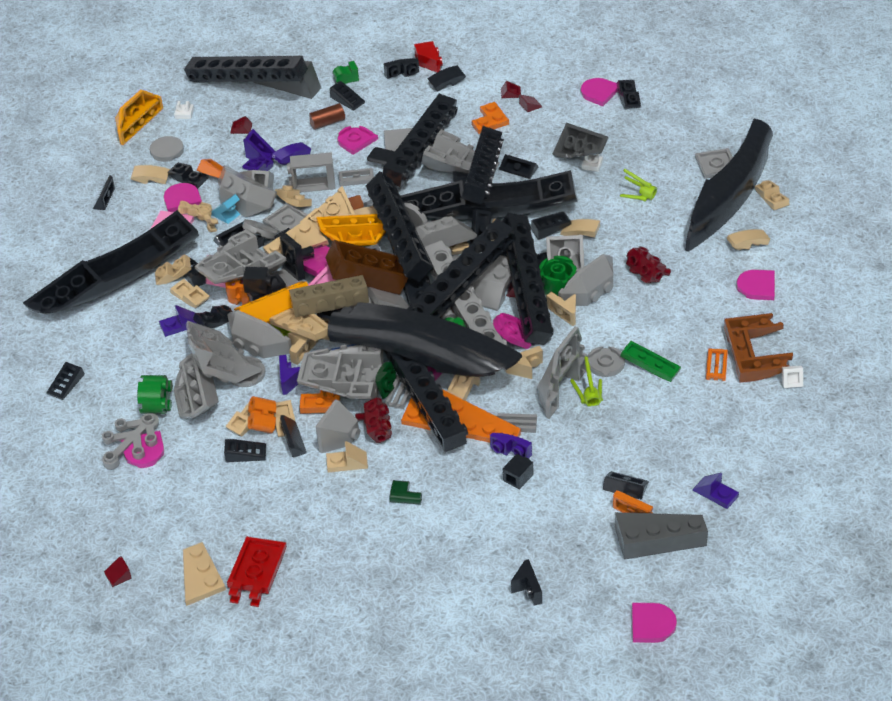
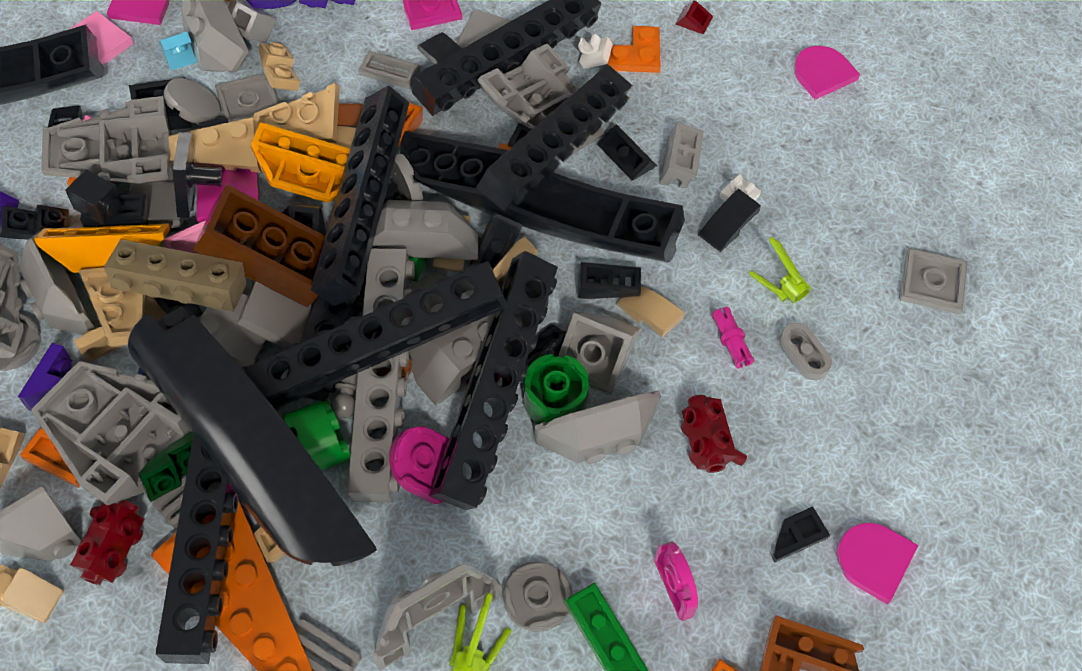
camera: 20 degrees right, 15 degrees up
(169, 272) = (35, 117): tan slope -> none
(187, 293) = (29, 162): tan slope -> none
(201, 211) = (145, 37): tan piece -> none
(309, 161) = (343, 30): light grey window -> none
(468, 126) = (594, 52): none -> white tile
(529, 103) = (708, 49): slope -> none
(530, 358) = (396, 534): tan slope -> none
(550, 155) = (682, 155): none -> light grey hinge
(564, 309) = (534, 460): tan slope -> none
(579, 142) = (734, 155): dark grey wedge -> none
(595, 175) = (729, 220): none -> black slope
(628, 94) = (863, 95): black slope -> none
(630, 224) = (732, 337): none -> dark pink pin
(669, 322) = (677, 579): none -> dark pink tile
(671, 215) = (807, 352): none -> light grey plate
(715, 288) = (799, 533): none -> black tile
(730, 186) = (925, 347): black slope -> none
(745, 238) = (905, 455): tan slope -> none
(771, 195) = (991, 383): tan slope -> none

